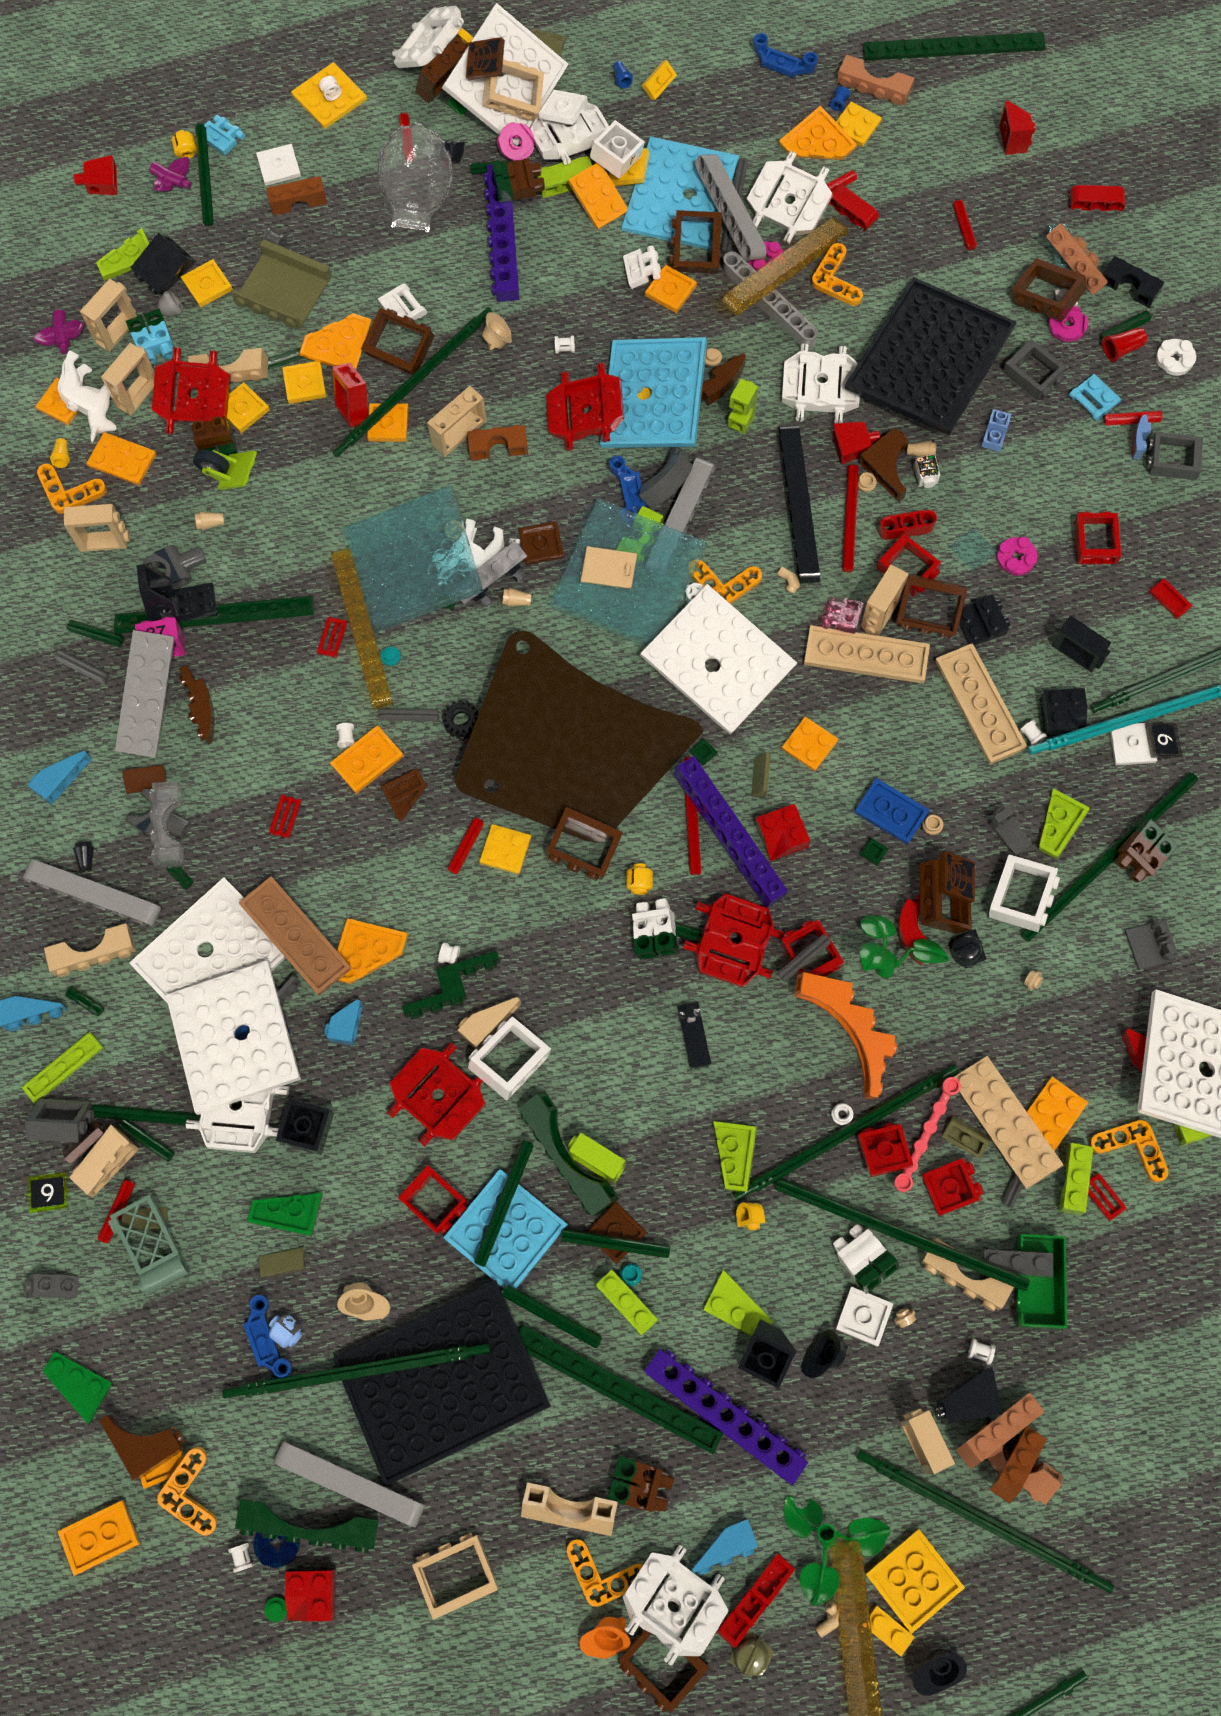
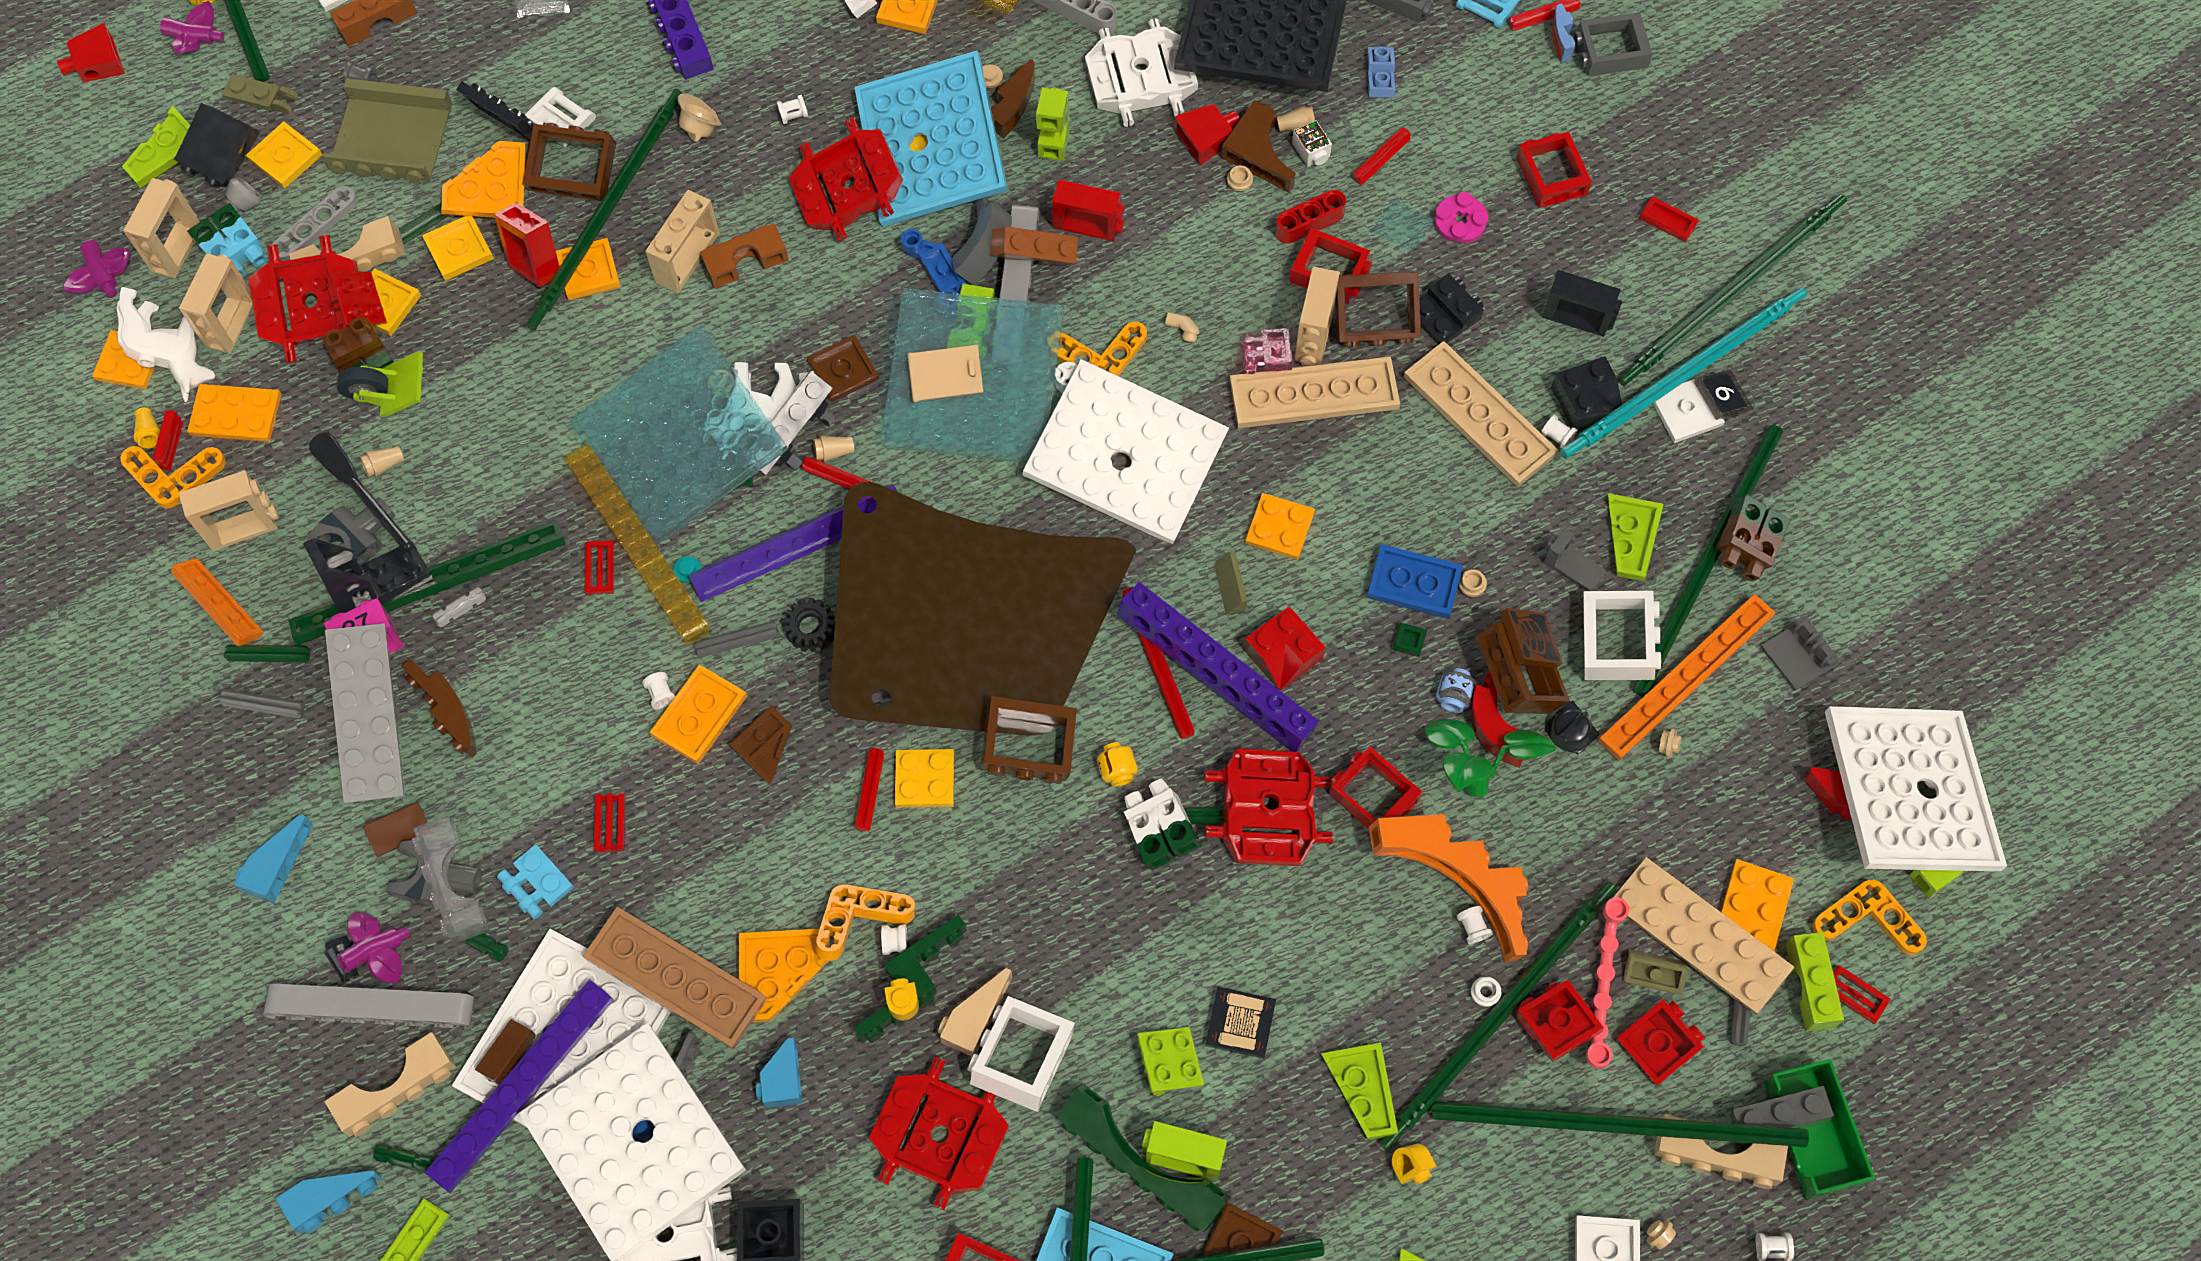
camera: 20 degrees left, 5 degrees down
(72, 466) = (168, 440): none -> red tile
(72, 588) = (217, 601): none -> orange tile
(105, 855) = (373, 947): none -> magenta plant
(169, 951) = (505, 1052): none -> reddish brown slope
(172, 977) = (519, 1086): none -> dark purple plate
(177, 509) = (336, 461): none -> black piece
(202, 234) = (258, 94): none -> olive hinge
(211, 336) = (311, 221): none -> light grey beam
(223, 401) = (356, 297): none -> red hinge
(230, 637) = (459, 606): none -> light grey axle
(230, 839) = (542, 875): none -> medium azure plate
(359, 289) = (497, 109): none -> black plate
(425, 924) = (848, 910): none -> light orange beam
(439, 997) = (902, 999): none -> yellow plate
(452, 661) = (774, 552): none -> dark purple plate
(511, 618) = (831, 473): none -> red axle
(608, 1093) = (1169, 1060): none -> lime hinge
(665, 1083) = (1240, 1022): none -> tile
(694, 1035) = (1257, 948): black hinge -> none
(700, 492) = (1032, 244): none -> dark orange arch
(703, 752) = (1145, 573): dark green tile -> none
(747, 476) = (1087, 210): none -> red window
(799, 503) = (1163, 224): black beam -> none
(804, 957) = (1369, 801): dark grey axle -> none
(849, 1064) = (1474, 924): none -> white bush
(850, 518) = (1235, 229): red axle -> none
(862, 1250) = (1583, 1171): white hips -> none
(894, 897) = (1456, 690): none -> head
(975, 493) = (1381, 156): none -> red axle
(1063, 937) = (1686, 677): none -> orange plate

